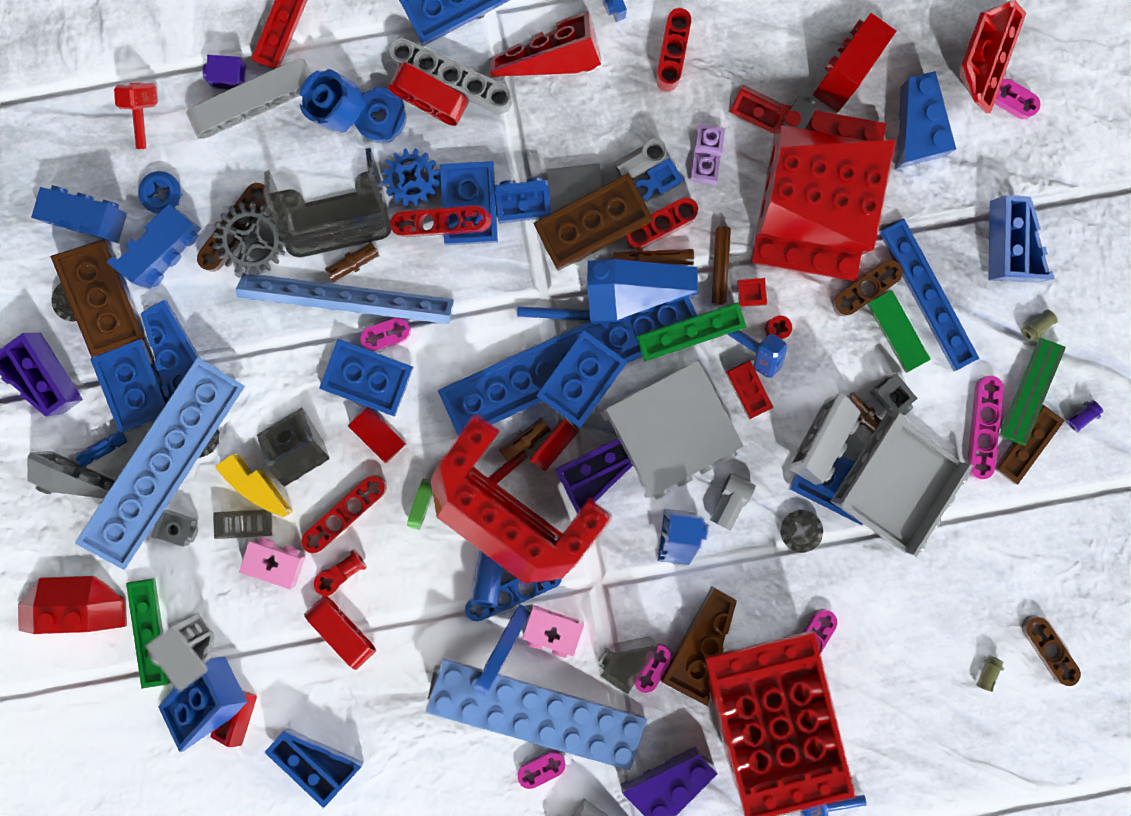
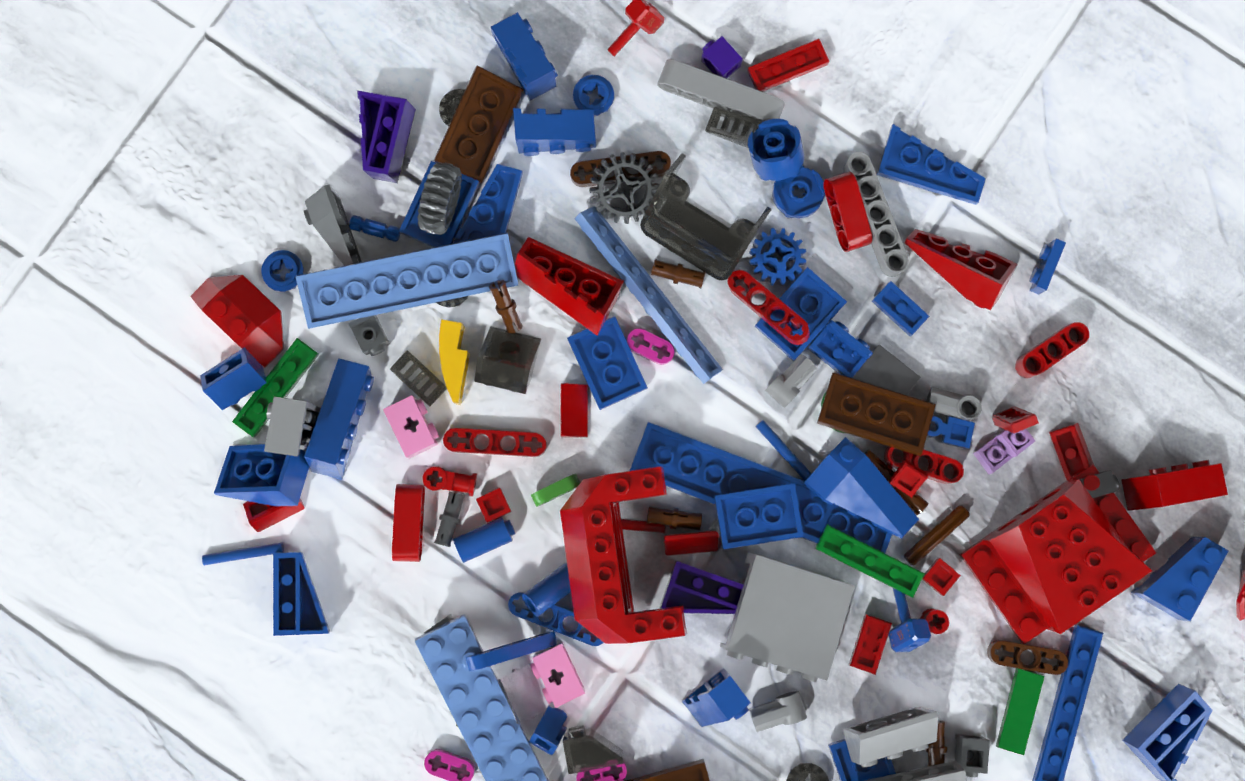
camera: 45 degrees right, 5 degrees down
(53, 546) = (274, 263): none -> blue gear
(109, 659) = (233, 379): none -> blue brick
(121, 381) = (439, 198): none -> dark grey gear
(214, 610) = (339, 419): none -> blue wedge
(245, 772) = (244, 553): none -> blue bar
(251, 410) = (505, 306): none -> reddish brown pin
(279, 348) = (568, 283): none -> red wedge
(283, 104) = (738, 119): none -> clear smoke slope
(366, 600) = (449, 519): none -> dark grey pin
(388, 559) = (493, 505): none -> red plate
(405, 589) = (484, 539): none -> blue brick
(510, 263) = (787, 385): none -> light grey piece
(536, 127) = (900, 308): none -> blue plate
(541, 669) = (523, 693): none -> clear piece
(585, 675) = (549, 730): none -> blue brick
(661, 245) = (908, 478): none -> red tile
(695, 127) = (1015, 419): none -> red plate

